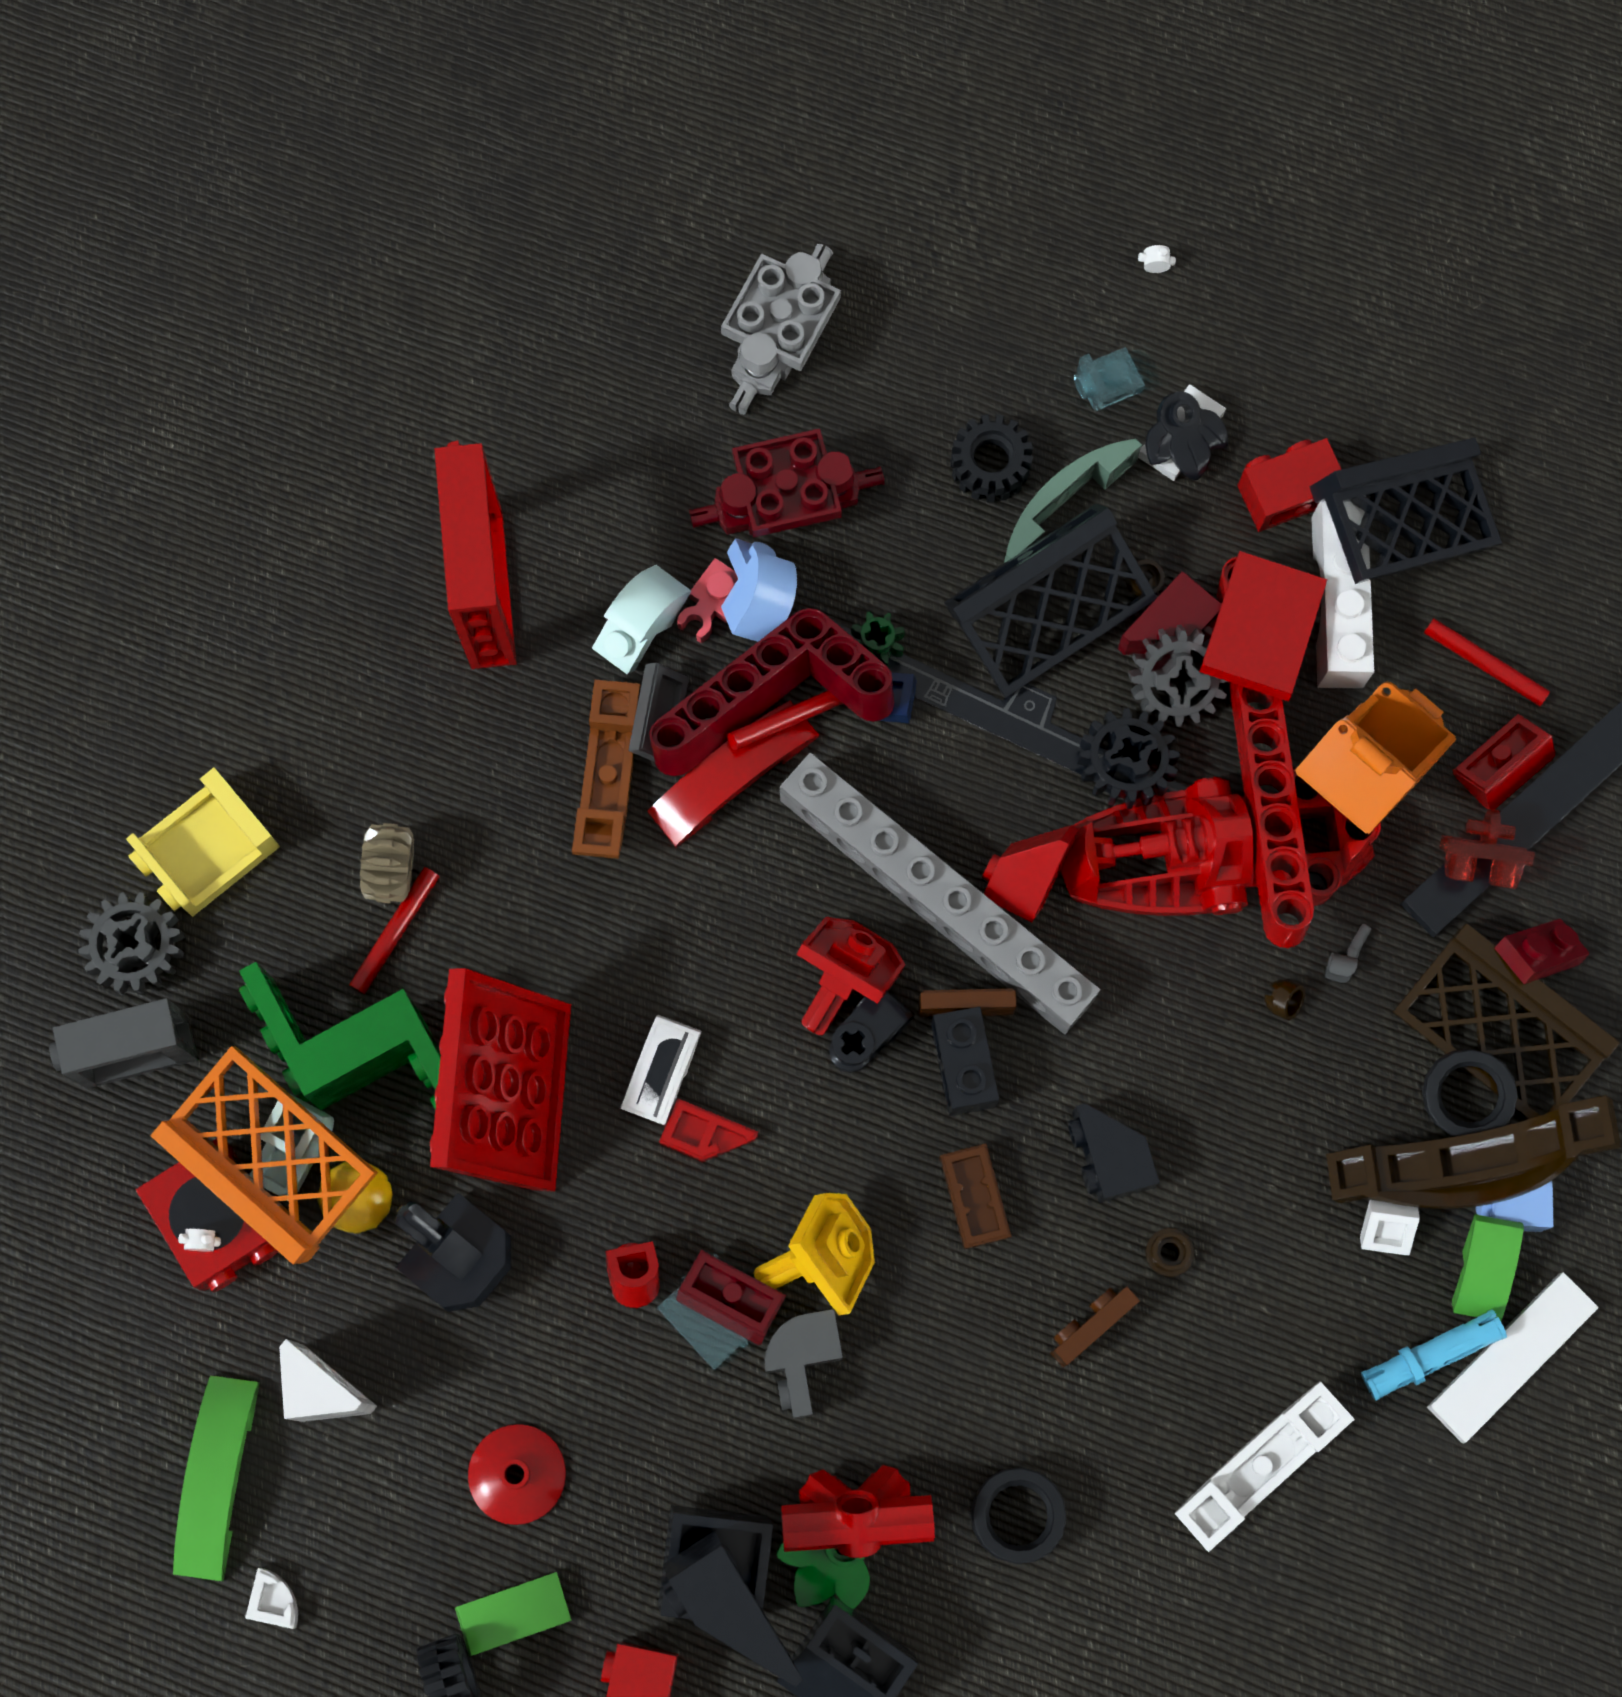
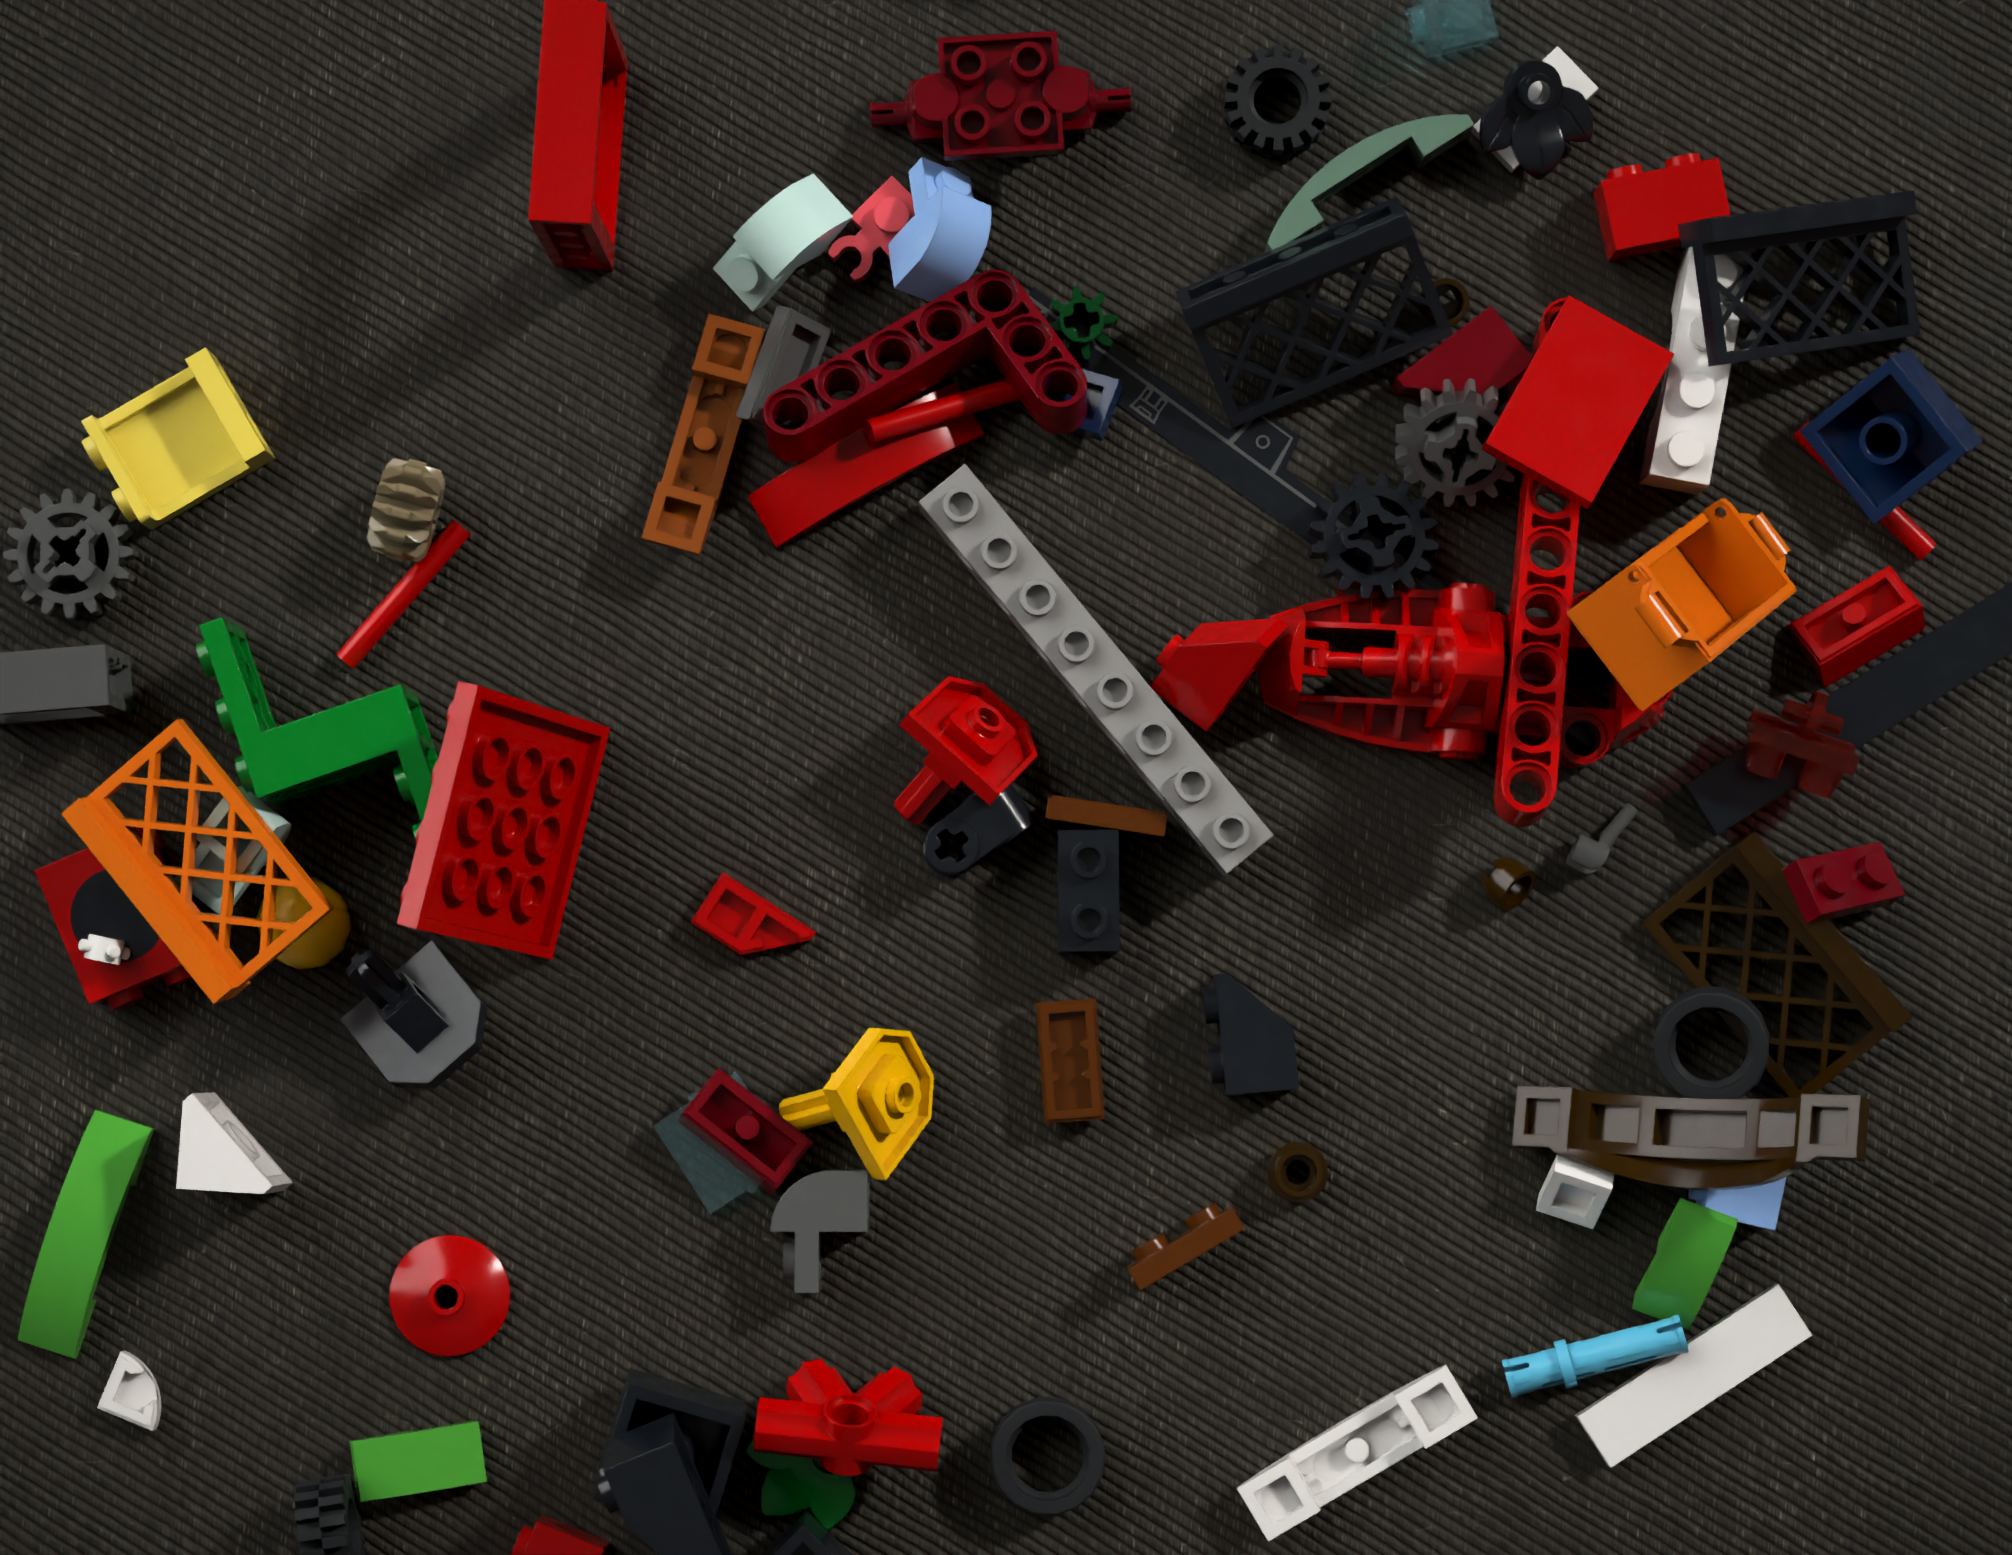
camera: 10 degrees right, 10 degrees up
(633, 1274) = (631, 1081): red plate -> none
(661, 1069) = (708, 832): white slope -> none
(1498, 616) = (1891, 435): none -> dark blue slope

